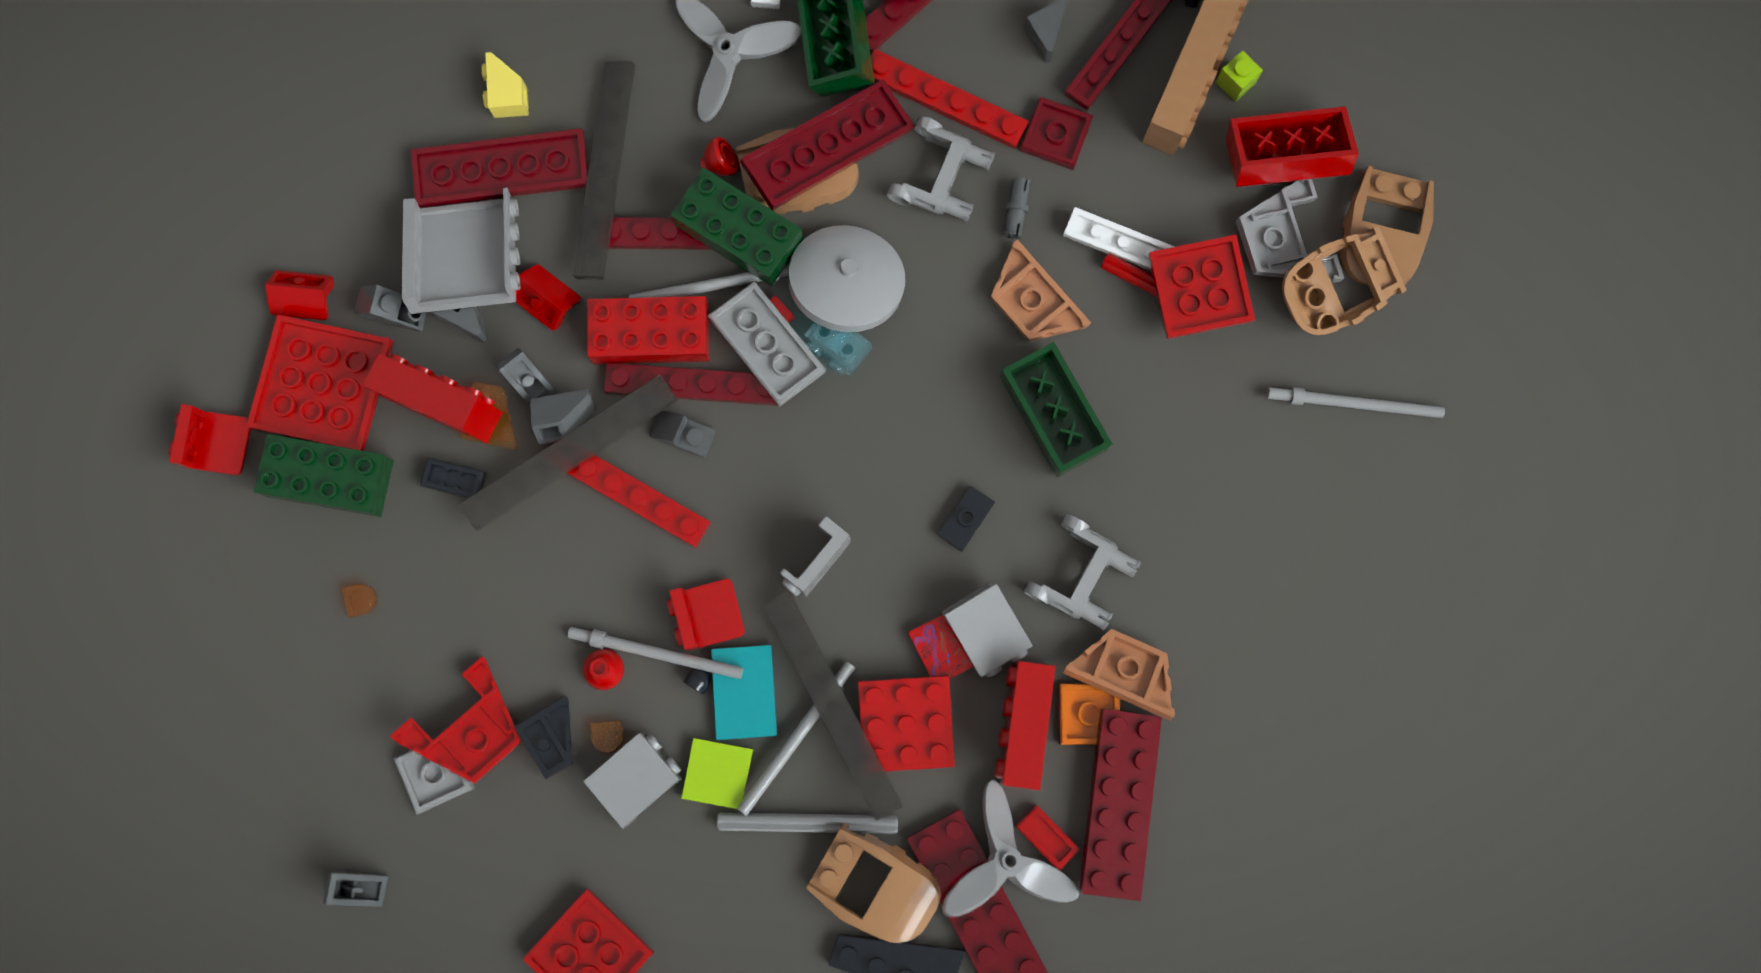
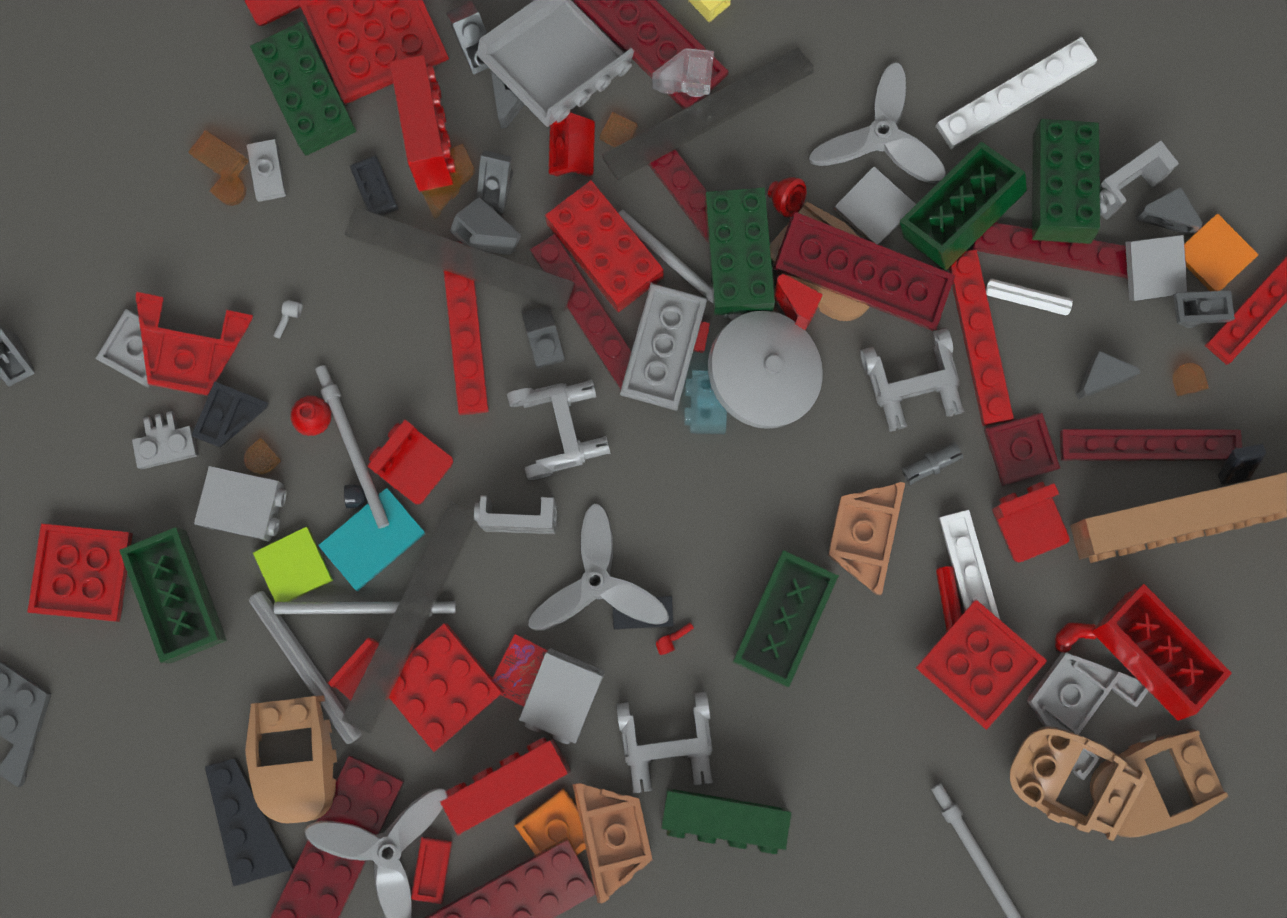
camera: 55 degrees right, 0 degrees up
(325, 587) = (218, 156): none -> clear orange tile
(368, 557) = (266, 170): none -> light grey plate
(501, 621) = (289, 309): none -> light grey hand
(532, 807) = (163, 442): none -> light grey hinge
(559, 159) = (686, 72): none -> clear slope
(561, 250) = (618, 130): none -> clear orange tile
(667, 889) = (172, 595): none -> dark green brick
(745, 455) = (574, 450): none -> light grey connector
(780, 99) = (874, 206): none -> light grey tile
(812, 211) = (796, 300): none -> red tile
(844, 786) = (351, 673): none -> red panel
(939, 524) = (597, 562): none -> light grey piece
(942, 38) = (1029, 297): none -> white axle
(1004, 519) = (665, 644): none -> red hand
(1119, 168) = (1031, 522): none -> red bracket
(1180, 569) = (726, 819): none -> dark green brick
(1226, 205) = (1071, 633): none -> red arm
(1239, 76) = (1189, 564): lime brick -> none

